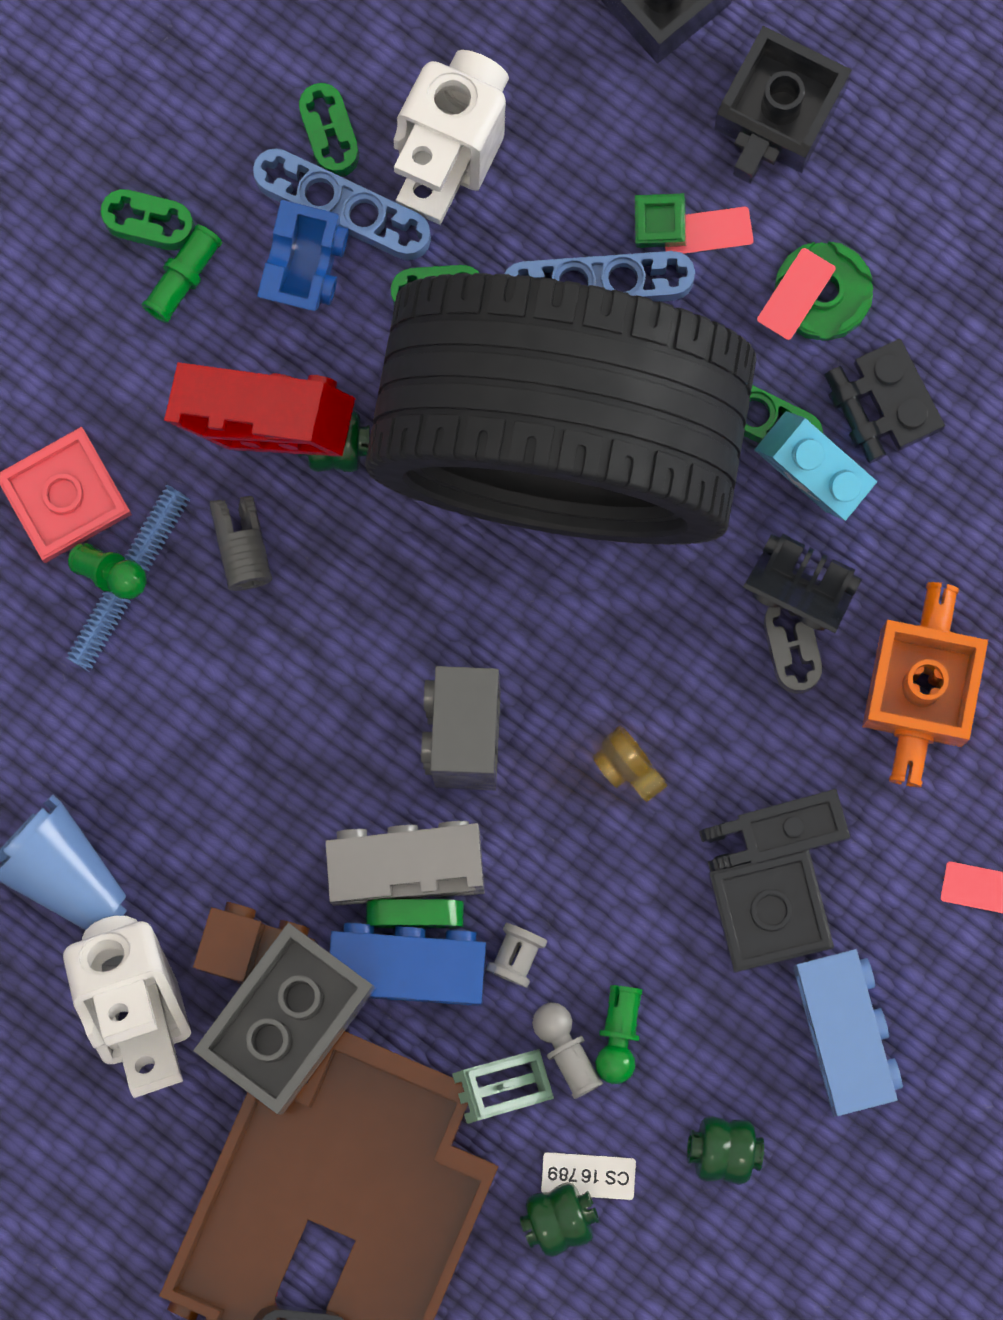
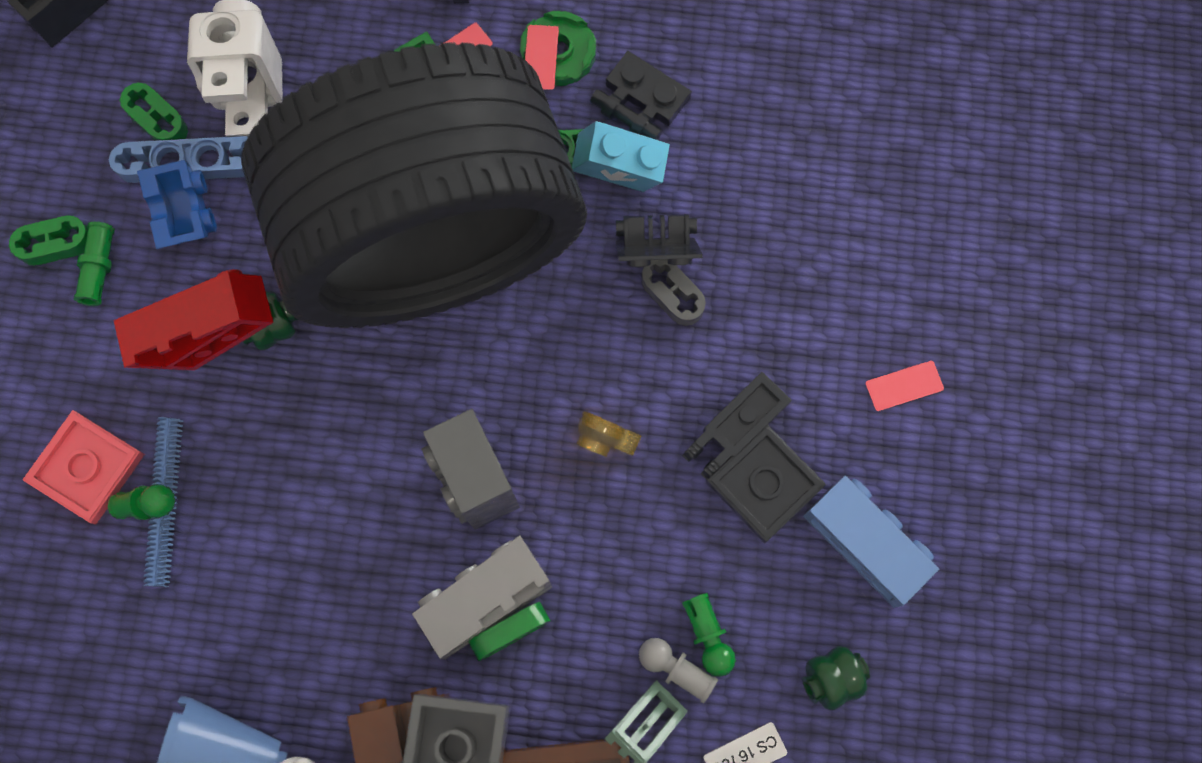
camera: 35 degrees left, 5 degrees down
(241, 551) = (238, 434): dark grey hinge -> none
(414, 966) = (528, 670): blue brick -> none
(513, 939) = (592, 608): light grey bush -> none
(953, 667) = (792, 243): orange brick -> none

